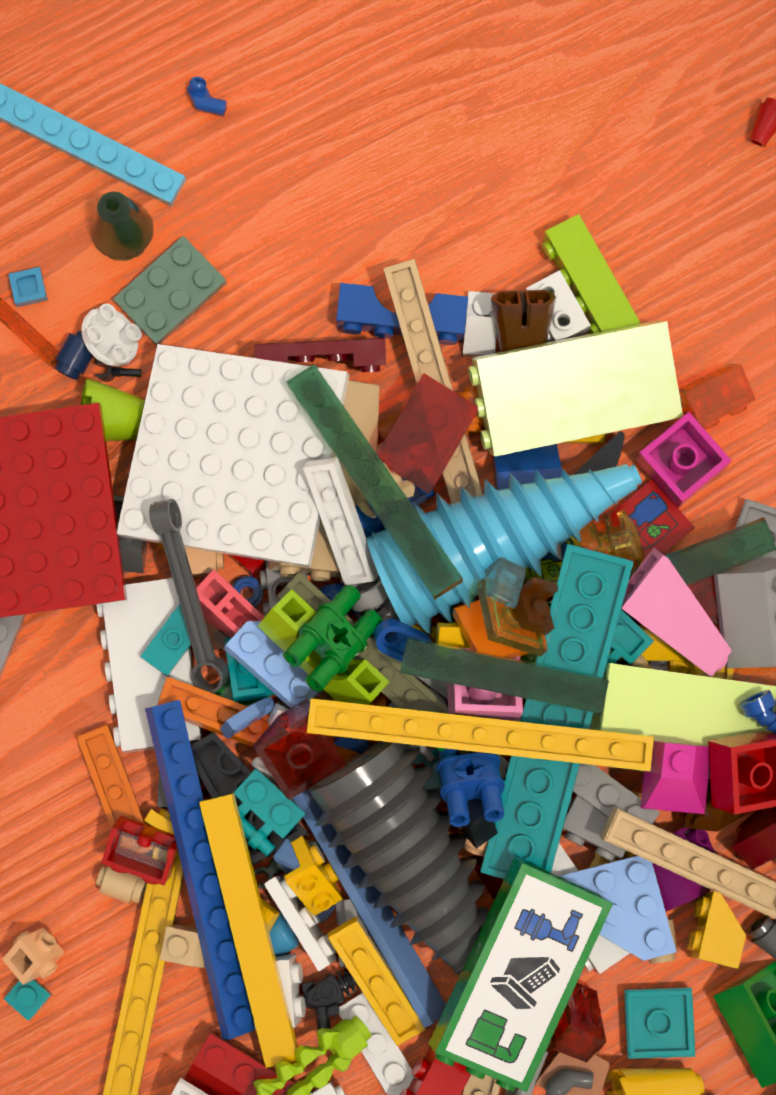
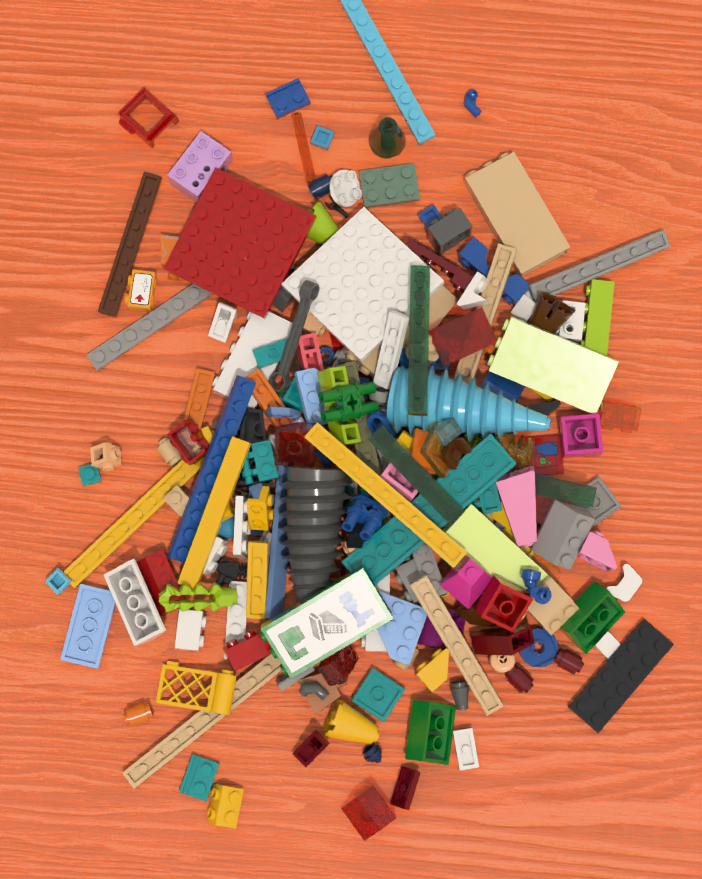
camera: 35 degrees right, 0 degrees up
(68, 645) = (223, 322): none -> white slope
(260, 296) = (429, 215): none -> blue plate
(300, 297) = (449, 231): none -> dark grey brick
(374, 209) = (516, 213): none -> tan brick
(397, 369) = (470, 296): none -> white slope
(541, 205) = (600, 265): none -> light grey tile

